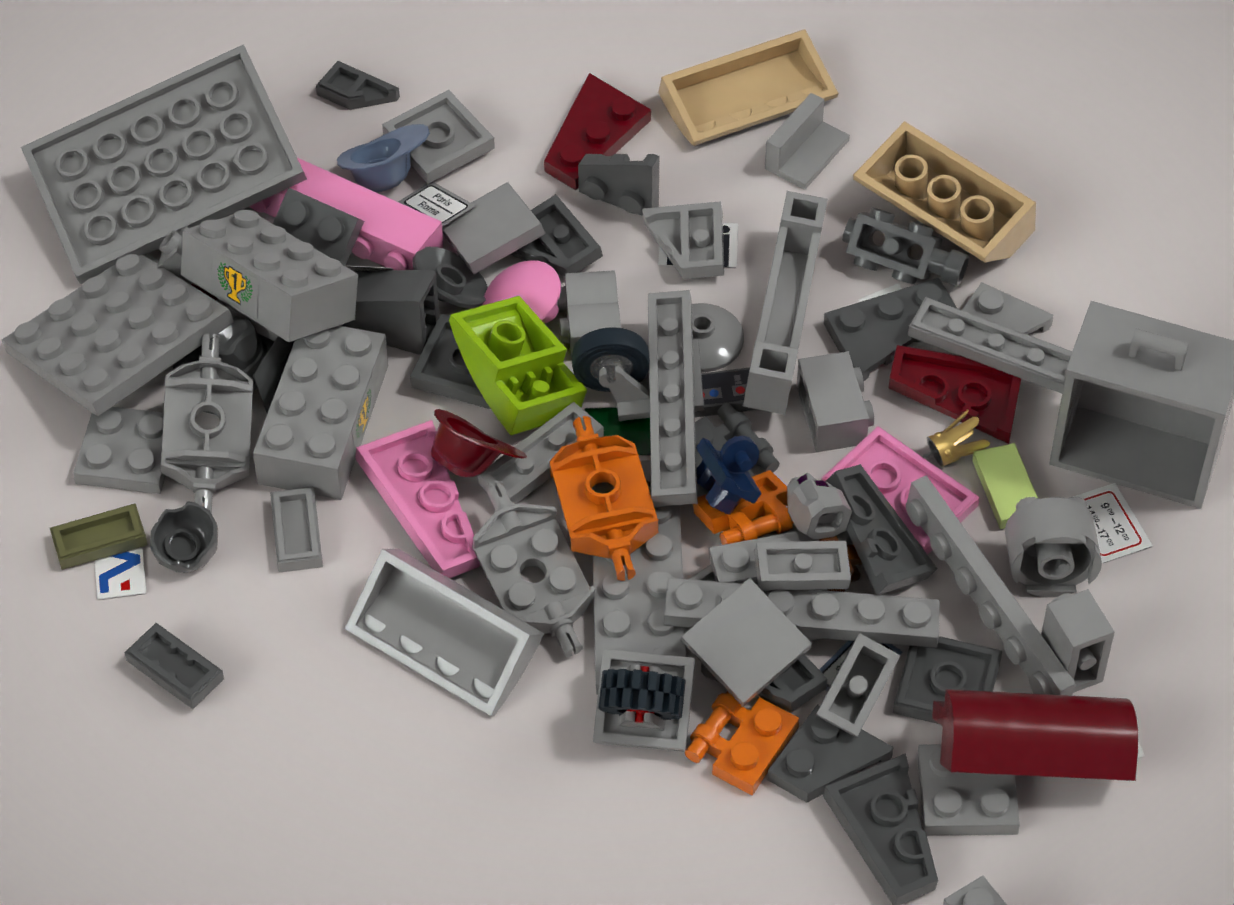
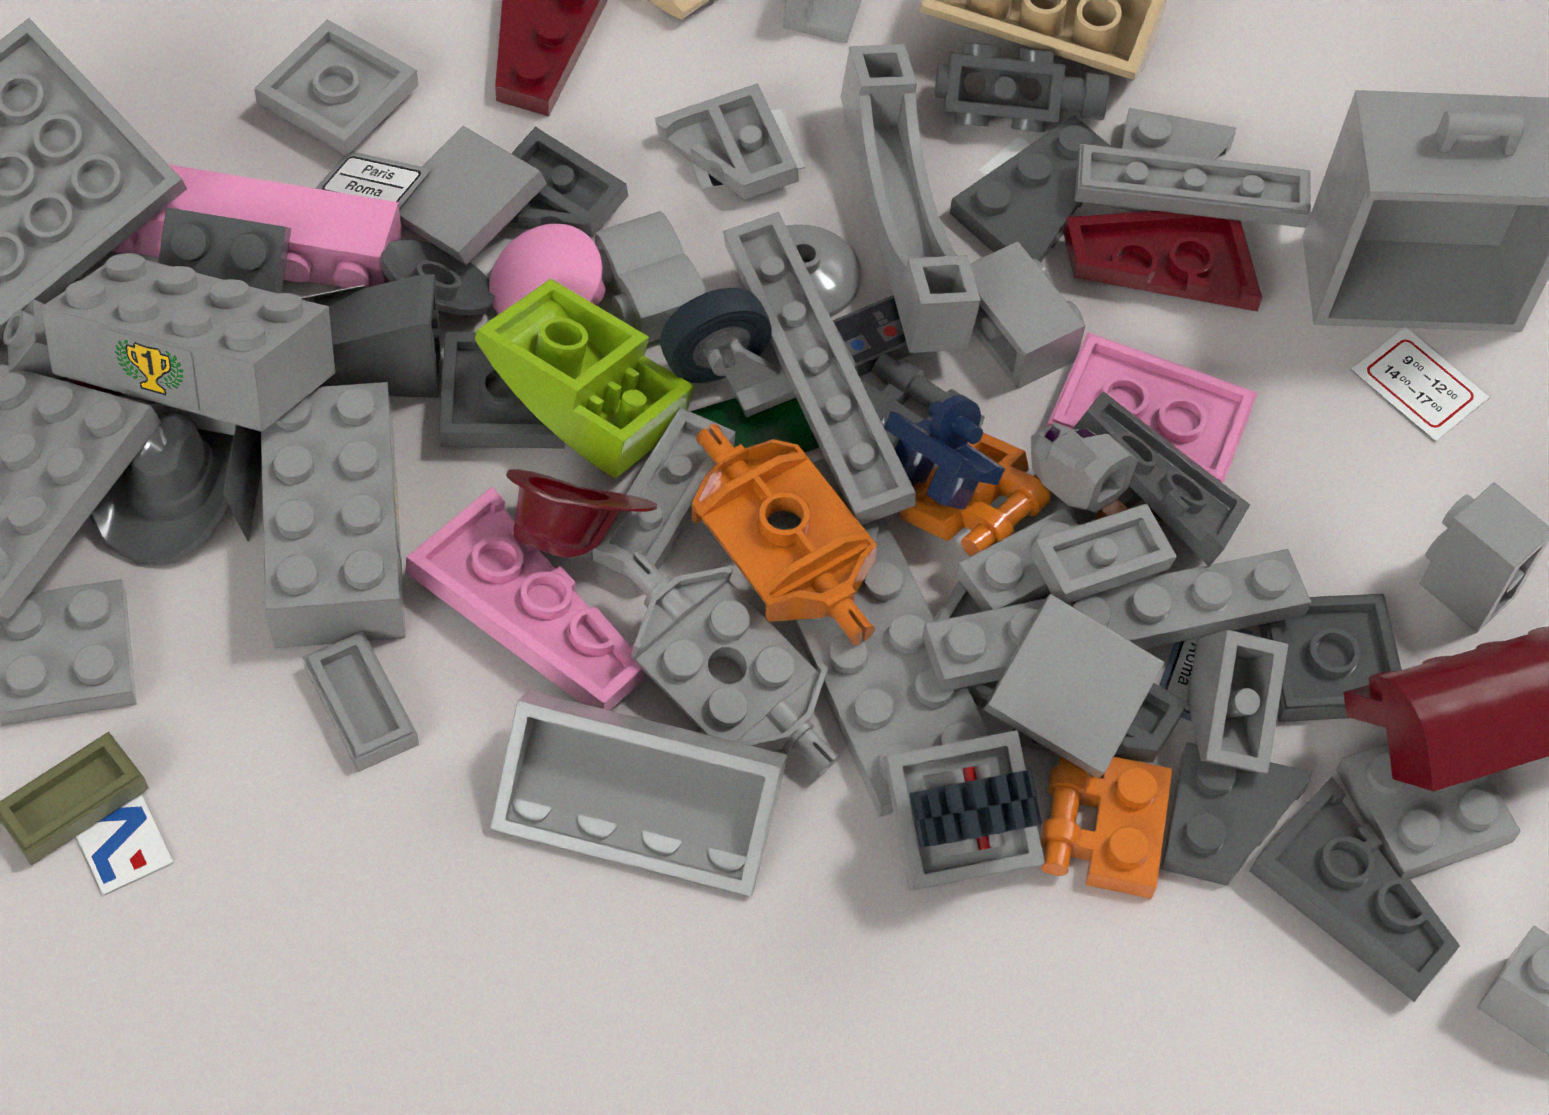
camera: 25 degrees left, 5 degrees up
(174, 665) = (264, 965): dark grey plate -> none
(184, 538) = (206, 764): dark grey hair -> none
(198, 456) = (168, 634): light grey plate -> none
(355, 88) = (191, 48): dark grey tile -> none
(385, 160) = (278, 134): sand blue piece -> none
(621, 181) = (615, 87): dark grey wing -> none
(945, 443) = (1184, 335): pearl gold piece -> none
(995, 602) = (1341, 520): light grey plate -> none
(1003, 479) = (1282, 367): yellowish green tile -> none
(1052, 545) = (1392, 432): light grey brick -> none

